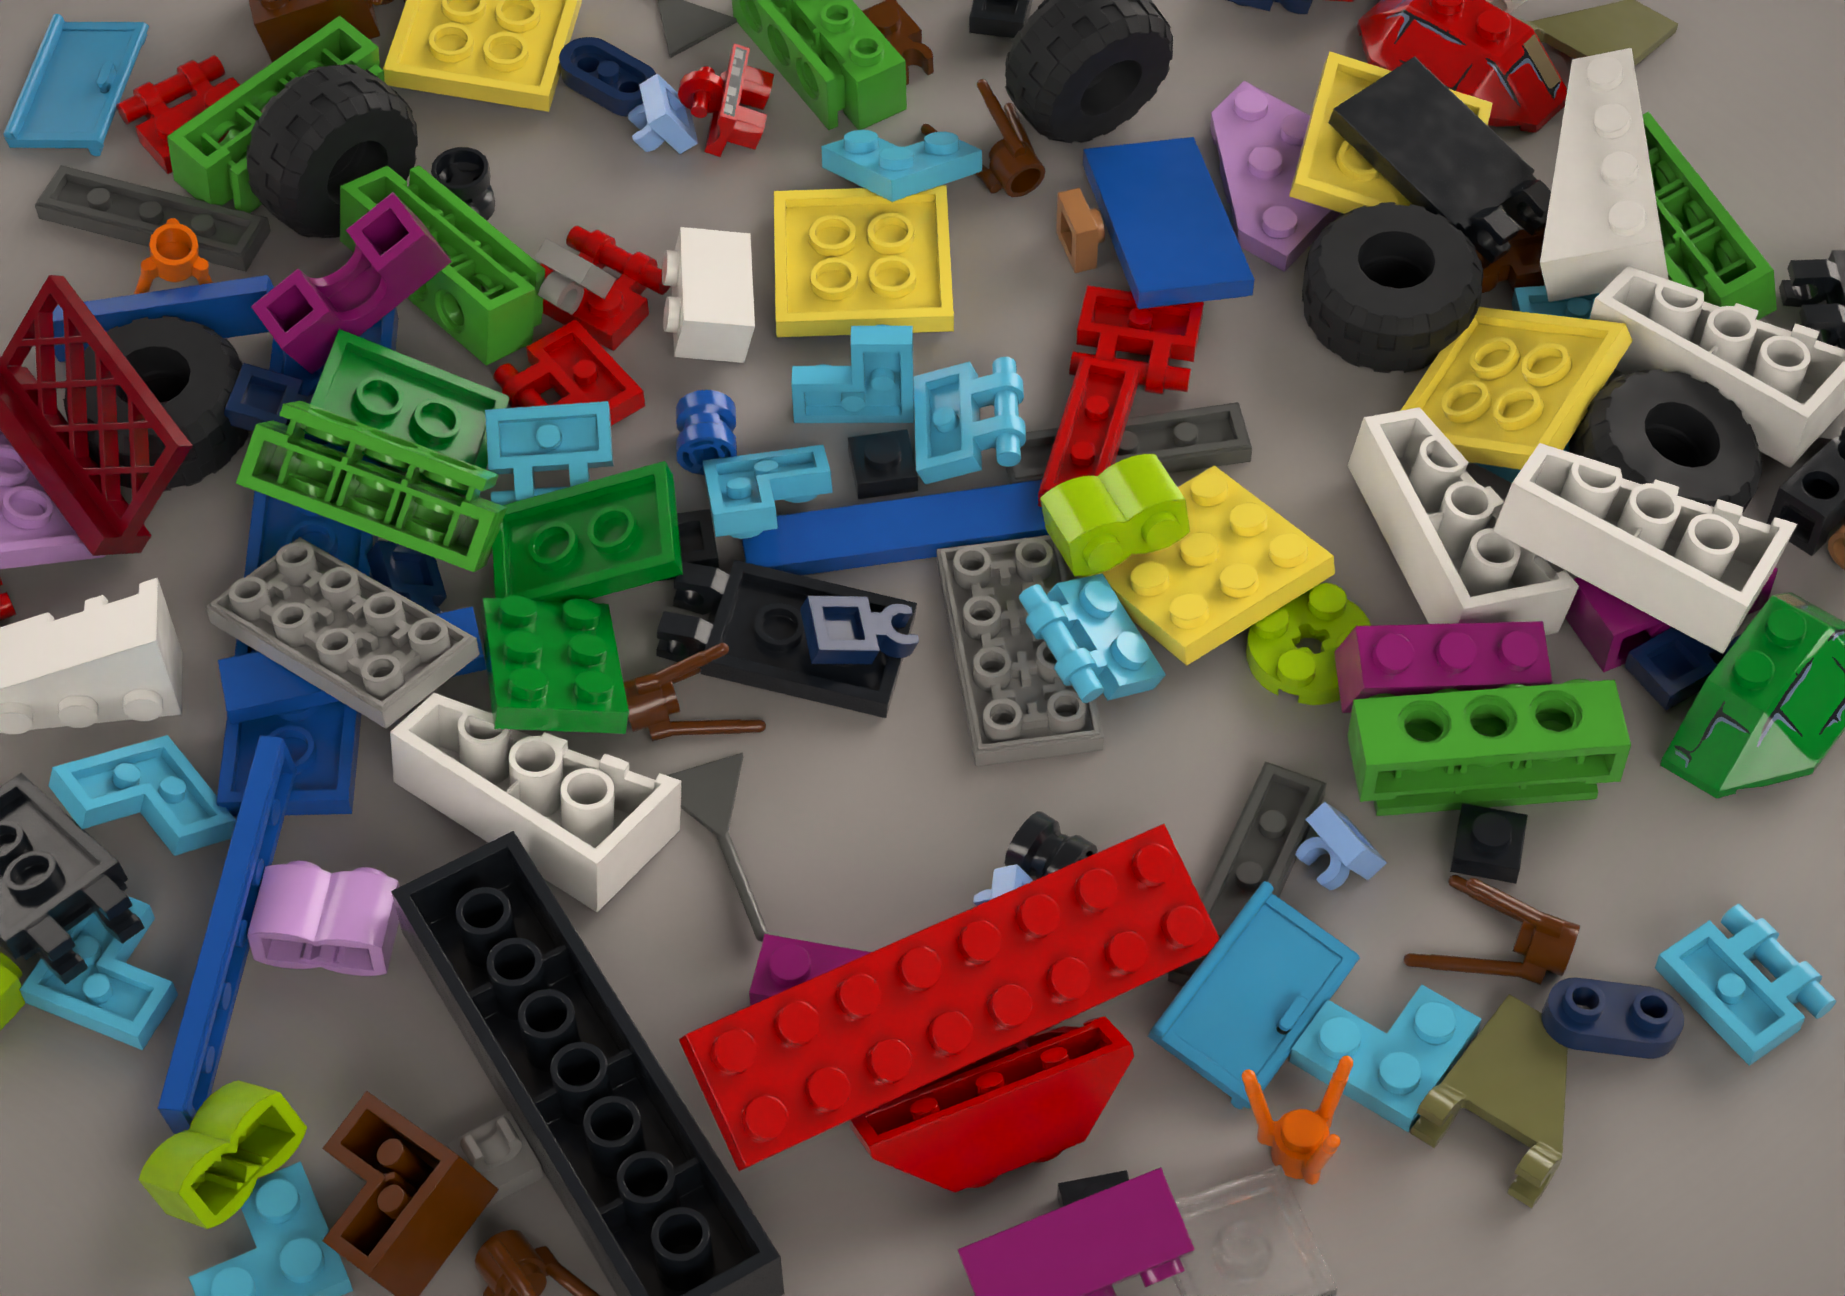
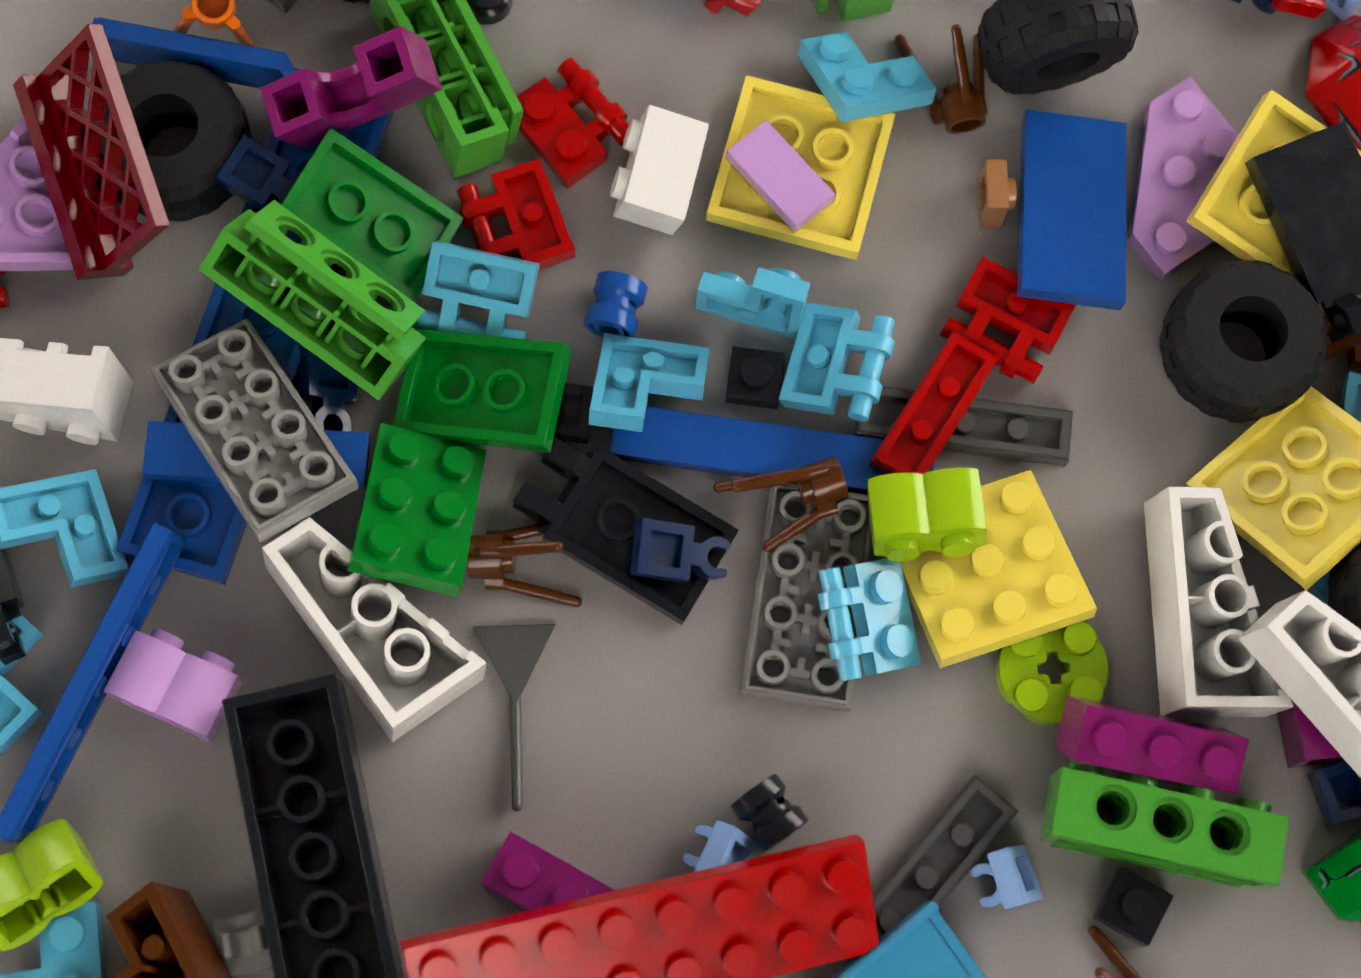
camera: 10 degrees right, 20 degrees up
(569, 277) = (545, 120): light grey tile -> none
(844, 265) = (780, 176): none -> lavender tile
(987, 522) = (817, 484): none -> reddish brown plant

